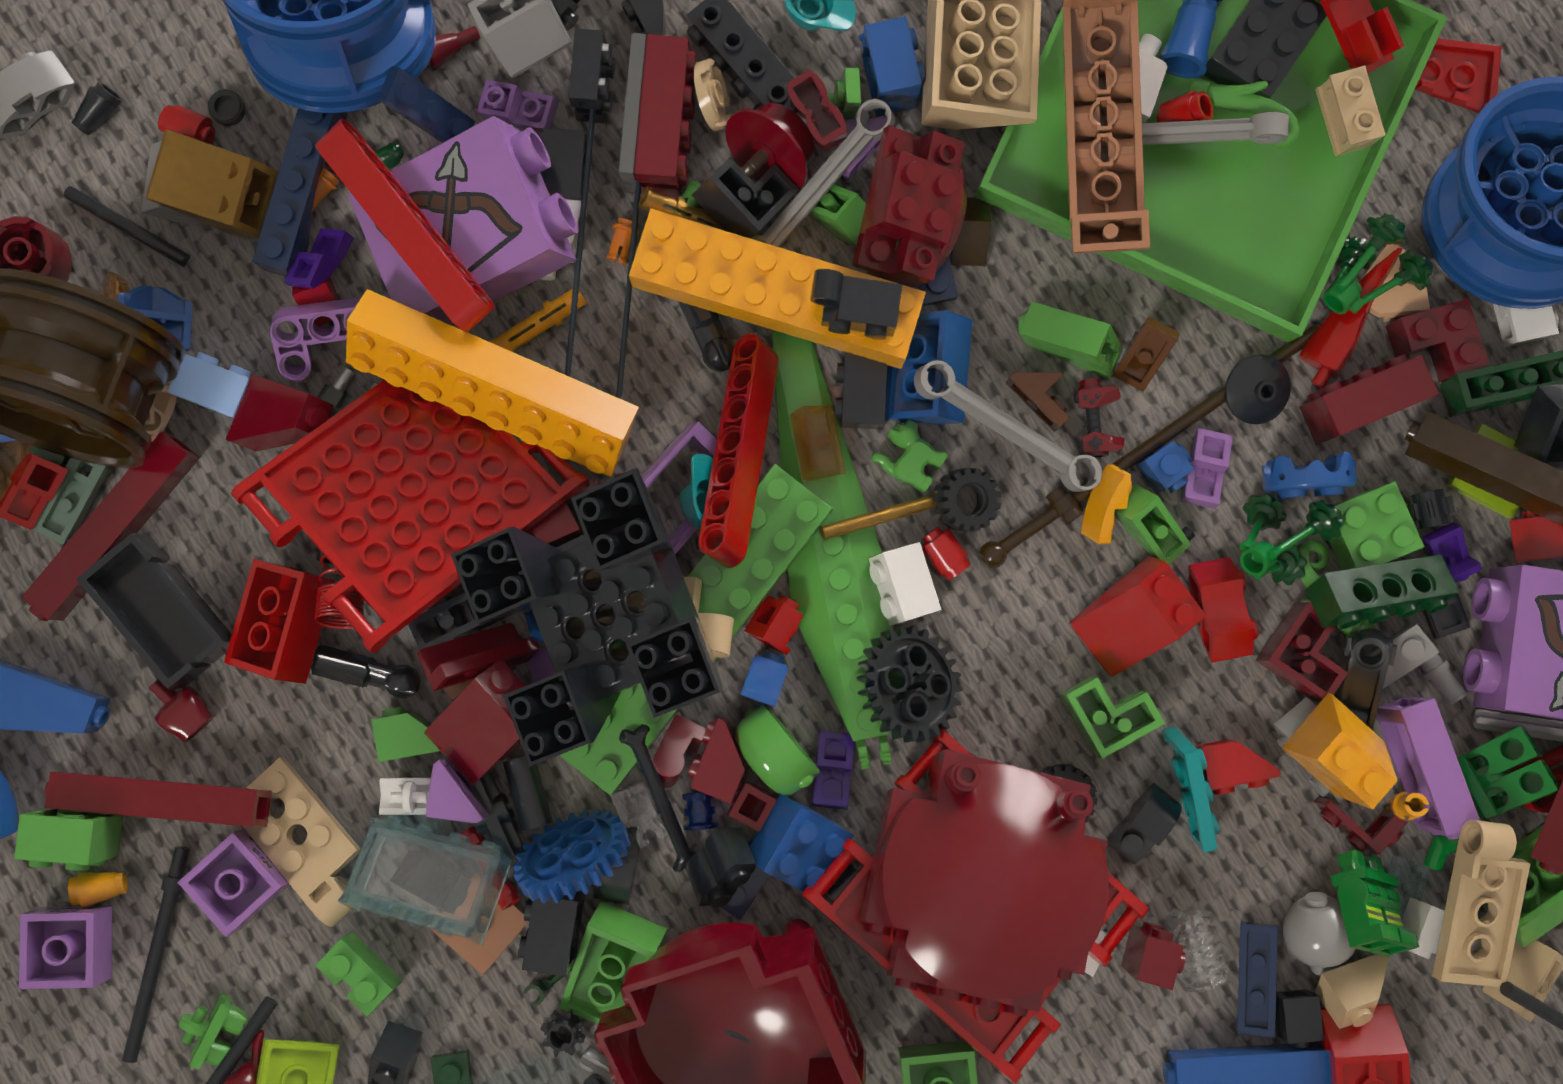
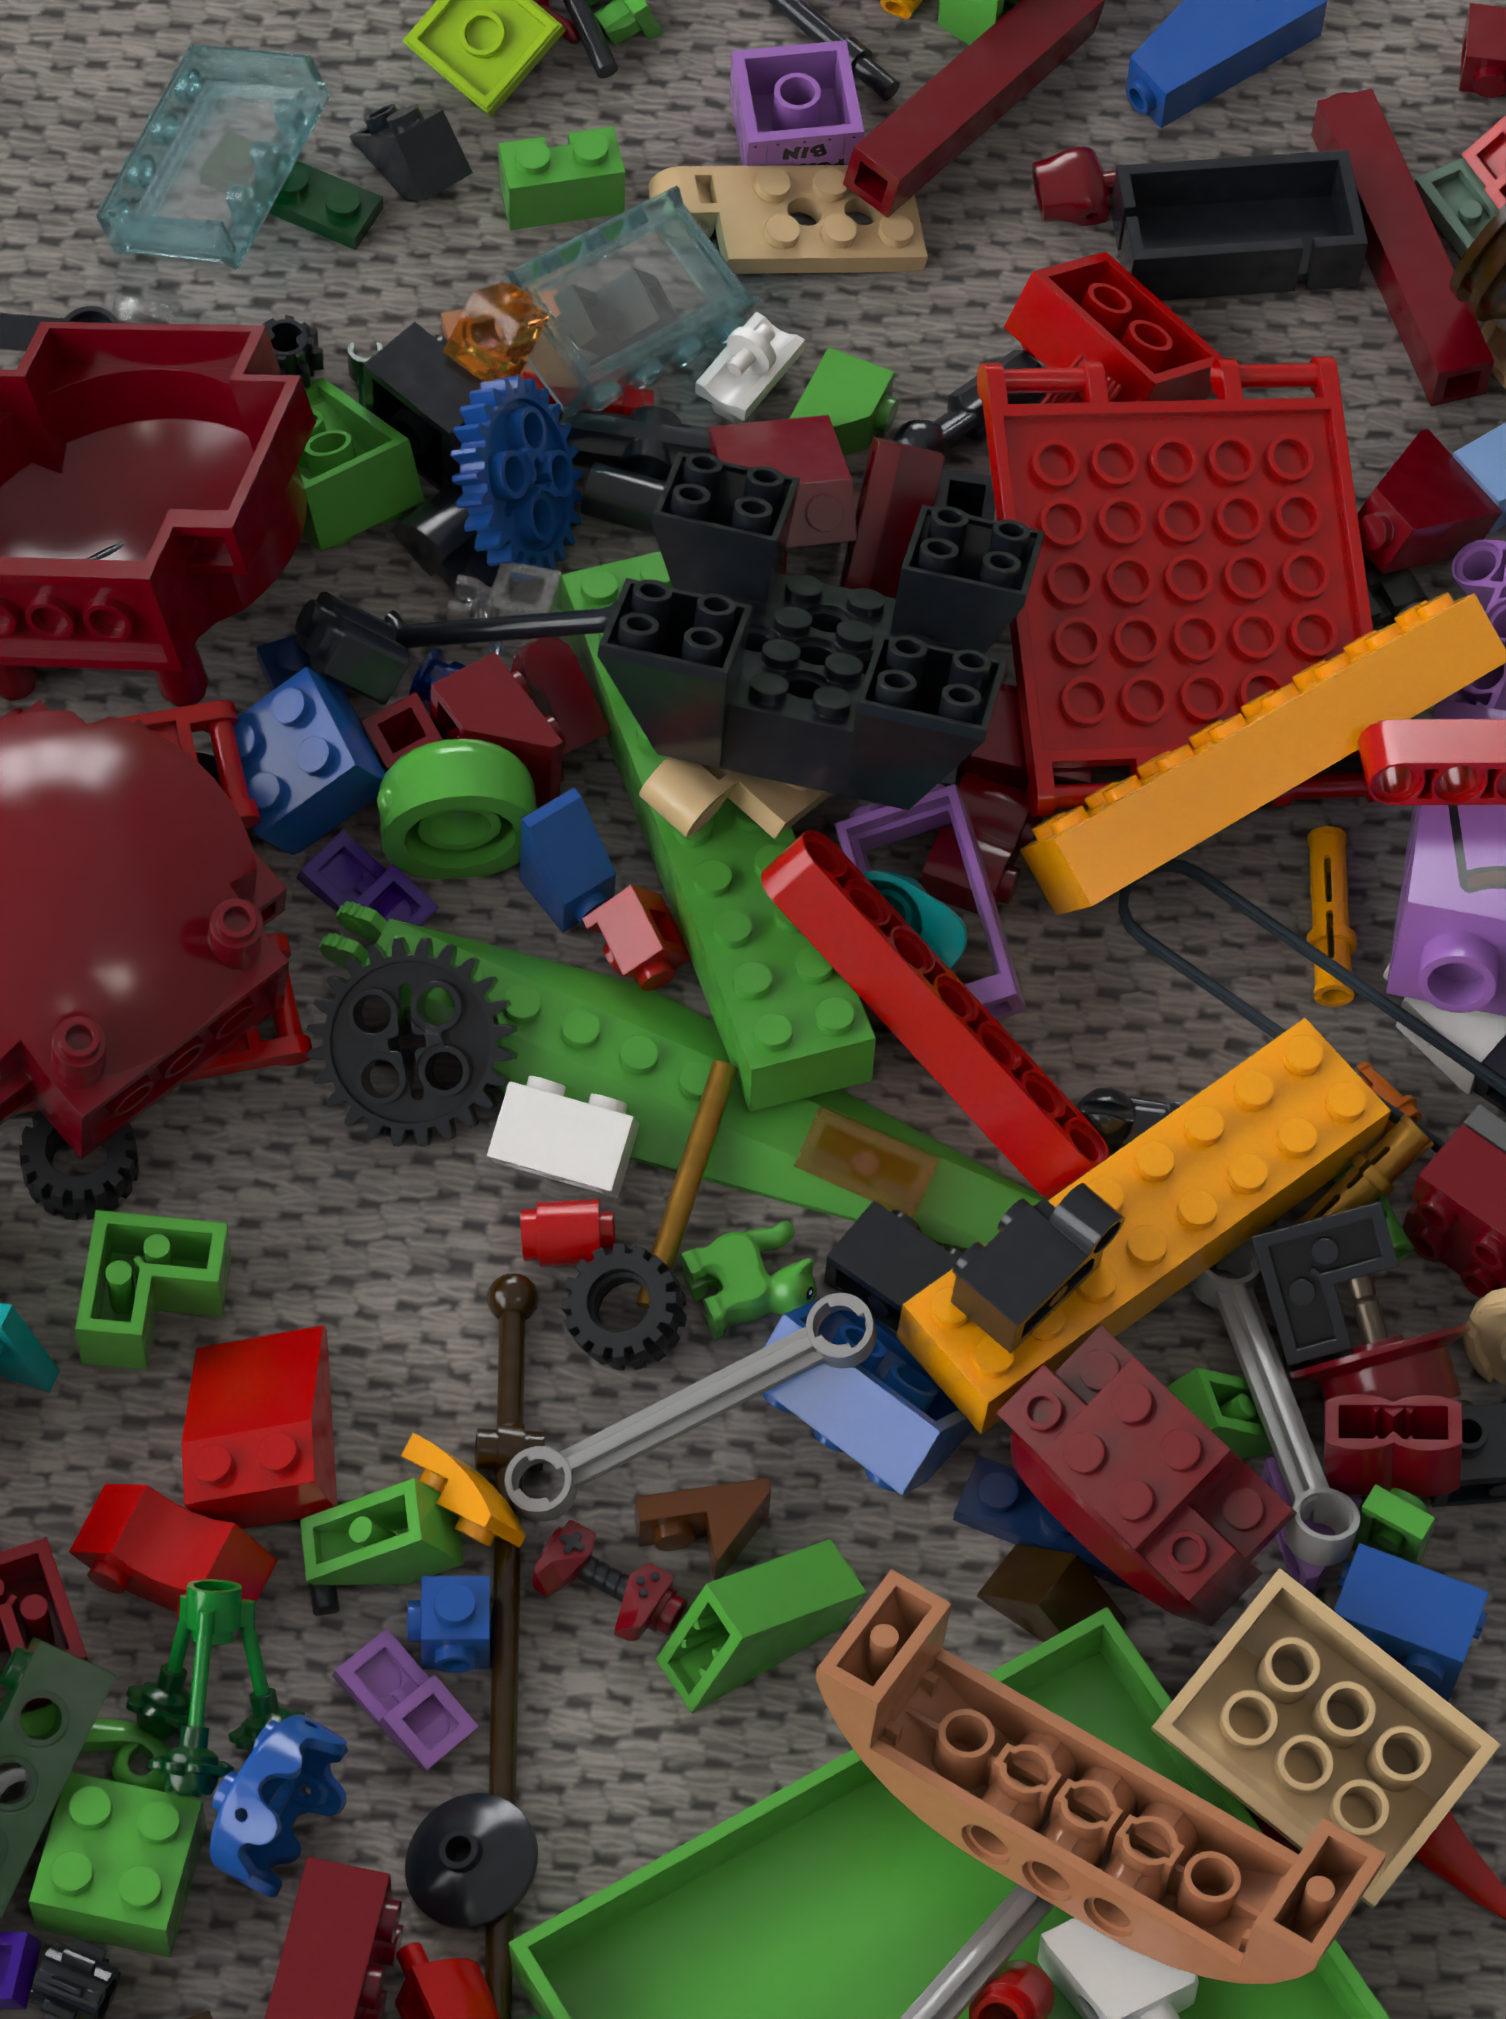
camera: 125 degrees right, 25 degrees down
(451, 797) = (709, 390): medium lavender slope -> none
(505, 919) = (475, 339): none -> clear orange brick
(1145, 353) = (658, 1721): reddish brown slope -> none

